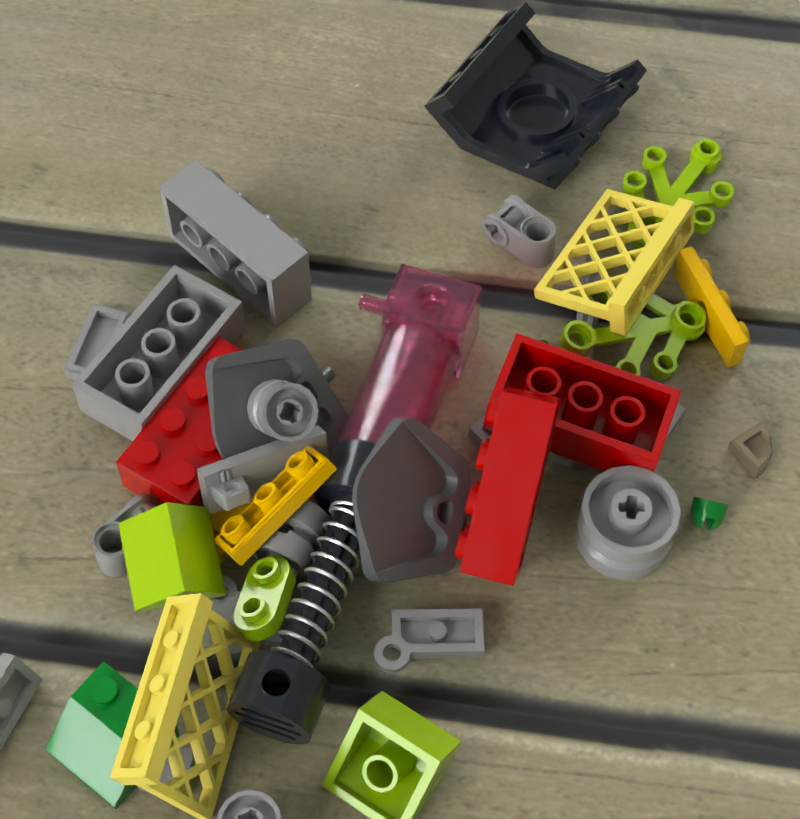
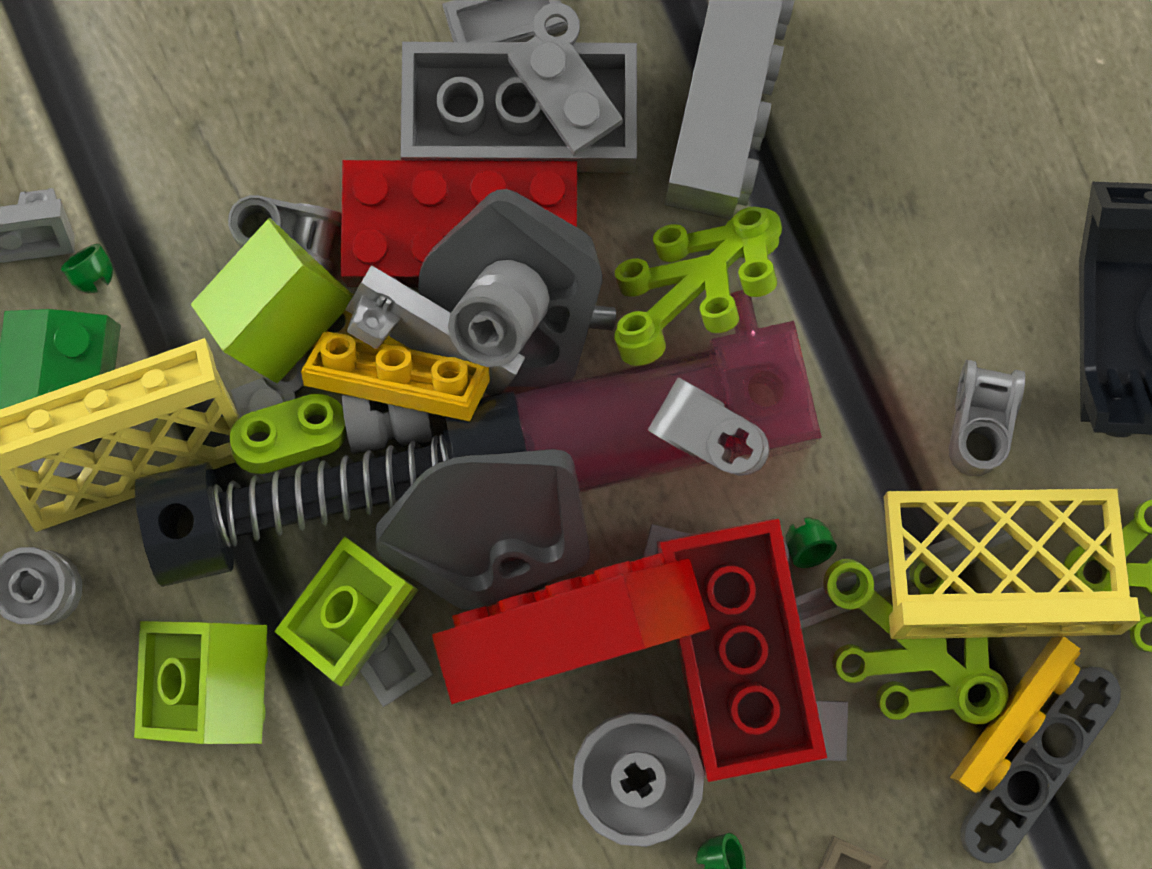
camera: 60 degrees right, 25 degrees up
(61, 673) = (87, 267): none -> green hinge
(167, 309) = (563, 82): none -> light grey hinge
(327, 290) = (748, 234): none -> lime plant
(409, 626) = (346, 612): none -> lime slope
(435, 333) = (702, 426): none -> light grey piece
(754, 312) = (1048, 770): none -> dark grey beam

